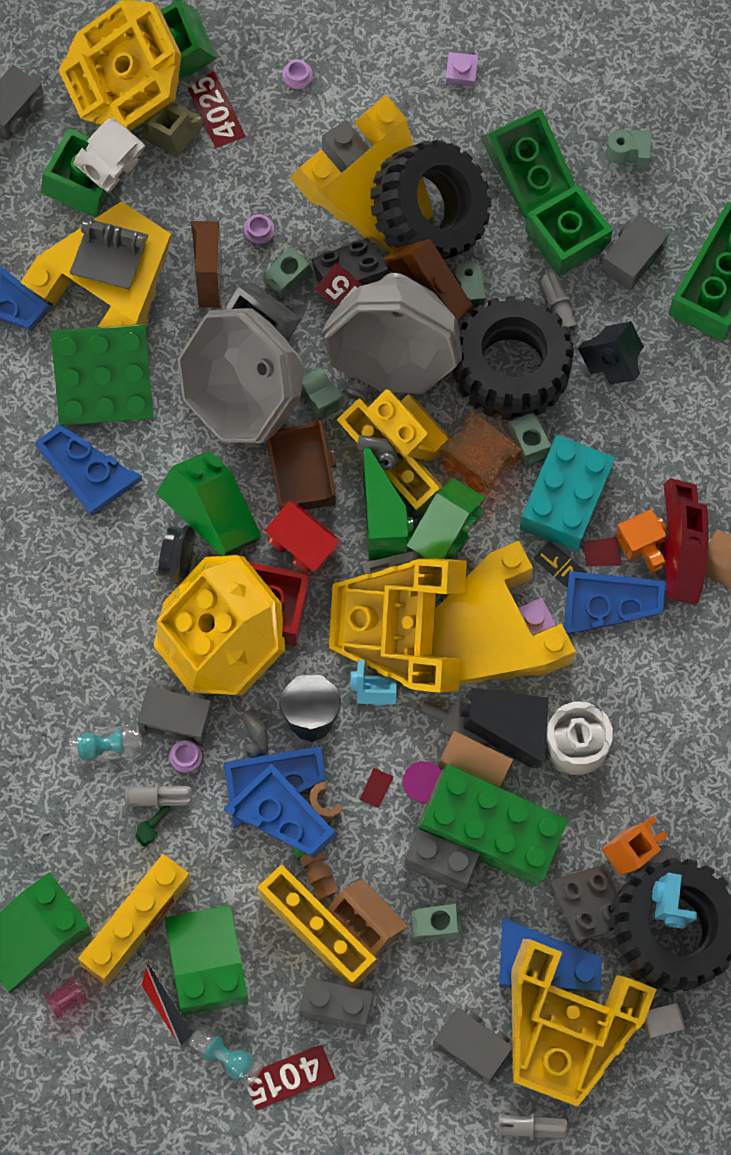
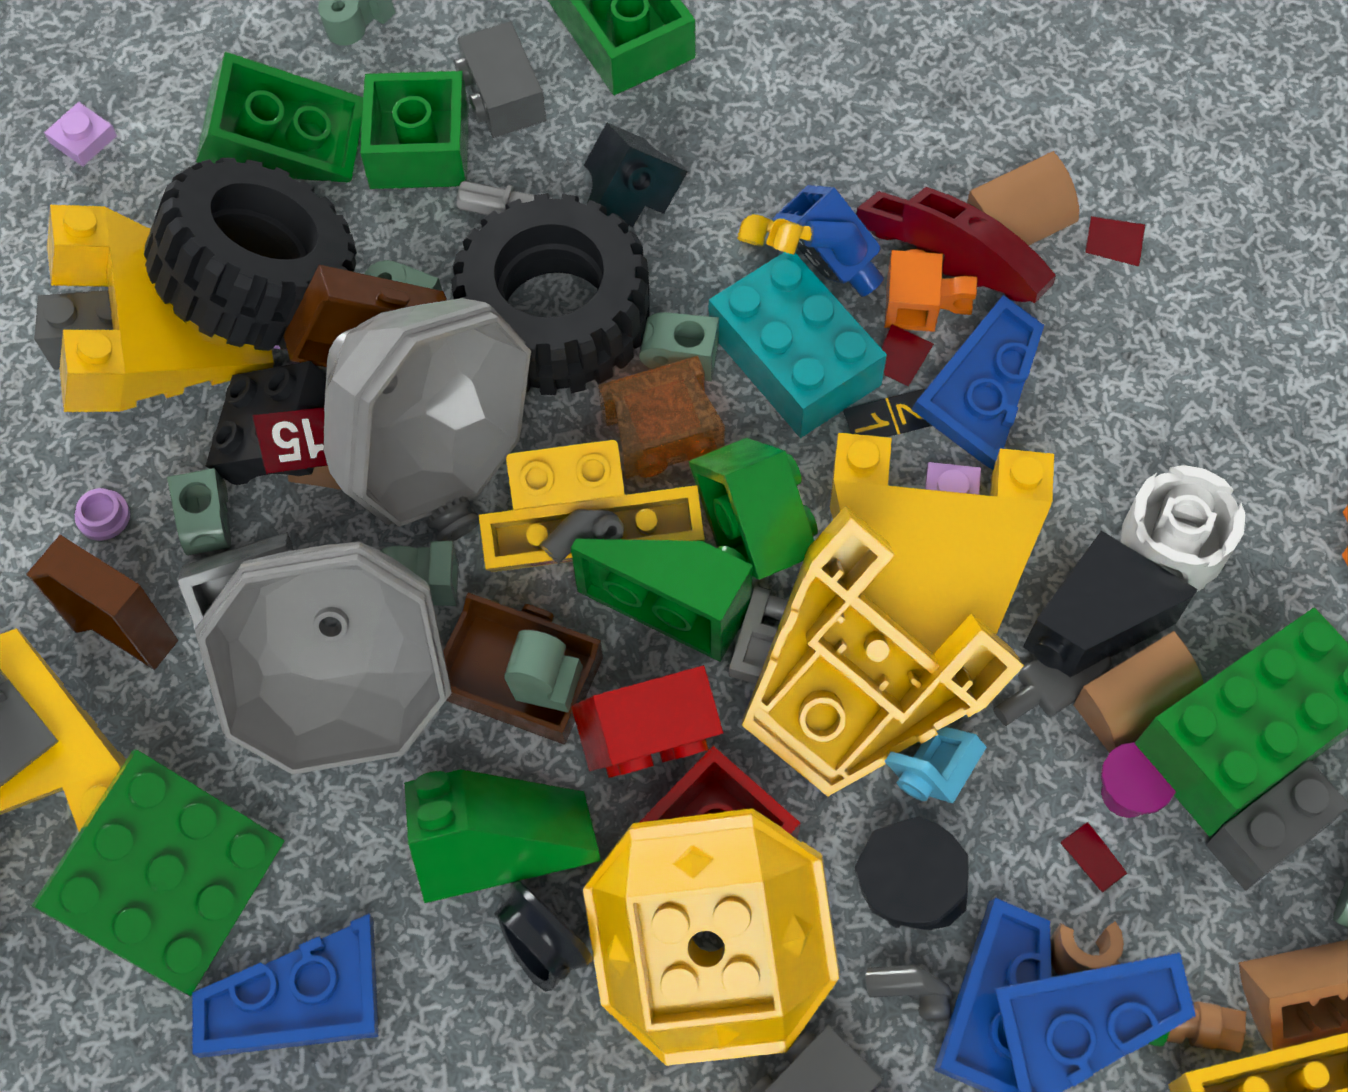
camera: 55 degrees left, 5 degrees down
(299, 477) = (541, 671): none -> sand green leg
(635, 467) = (825, 233): none -> blue torso

